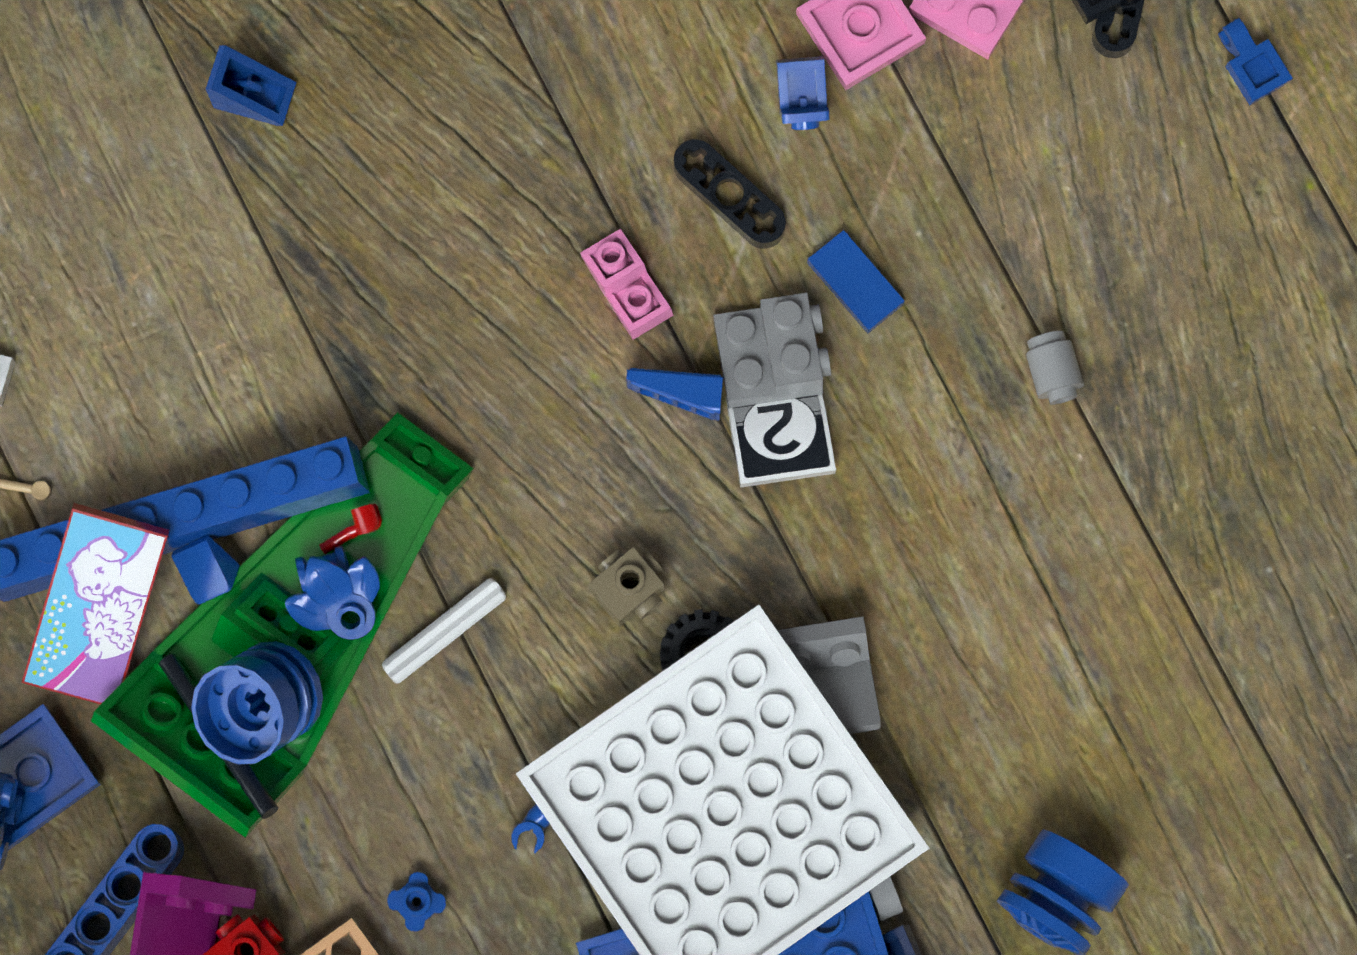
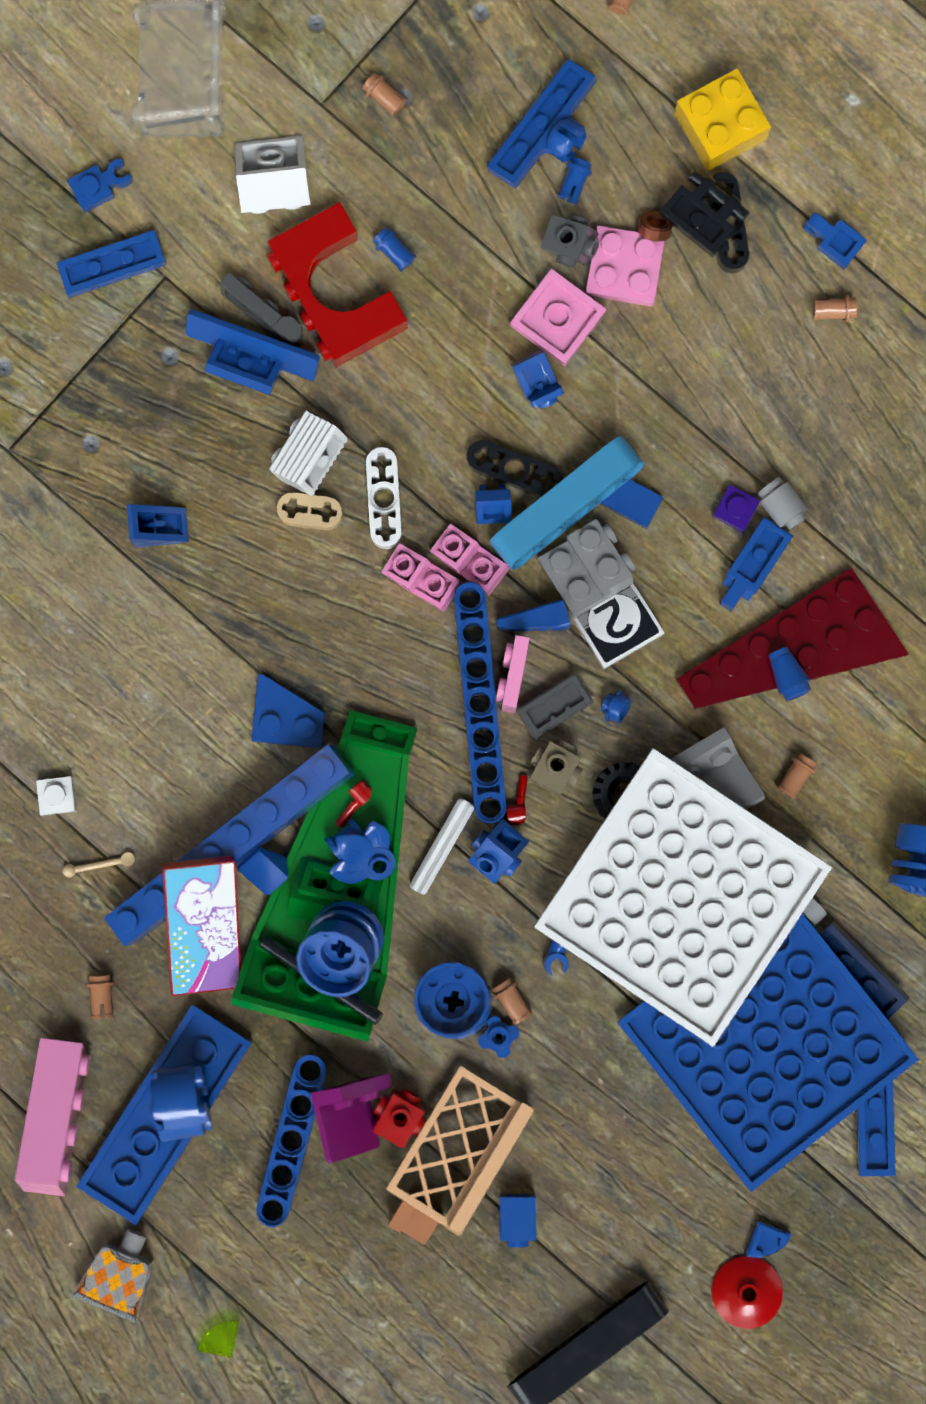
camera: 20 degrees left, 5 degrees up
(312, 390) = (285, 717): none -> blue wing
(369, 802) = (442, 983): none -> blue wheel
(452, 862) = (512, 1001): none -> nougat pin
(456, 137) = (309, 520): none -> tan beam
(475, 71) = (307, 453): none -> white brick
(502, 665) = (495, 858): none -> blue brick
(548, 129) = (373, 473): none -> white beam
(556, 283) = (421, 577): none -> bright pink slope
(556, 626) = (517, 813): none -> red hand
(561, 445) = (479, 686): none -> blue beam
(611, 460) = (514, 660): none -> bright pink plate
(659, 509) = (554, 706): none -> dark grey plate
(683, 227) = (493, 505): none -> blue tile
(738, 540) = (616, 706): none -> blue plate
(777, 259) = (567, 503): none -> dark azure beam
(935, 719) = (796, 775): none -> nougat pin
(974, 585) = (789, 675): none -> blue cone
(988, 428) = (754, 562): none -> blue hinge
(992, 351) = (736, 508): none -> dark purple plate
(1020, 554) = (825, 632): none -> dark red wing
(1219, 149) = (835, 308): none -> nougat pin

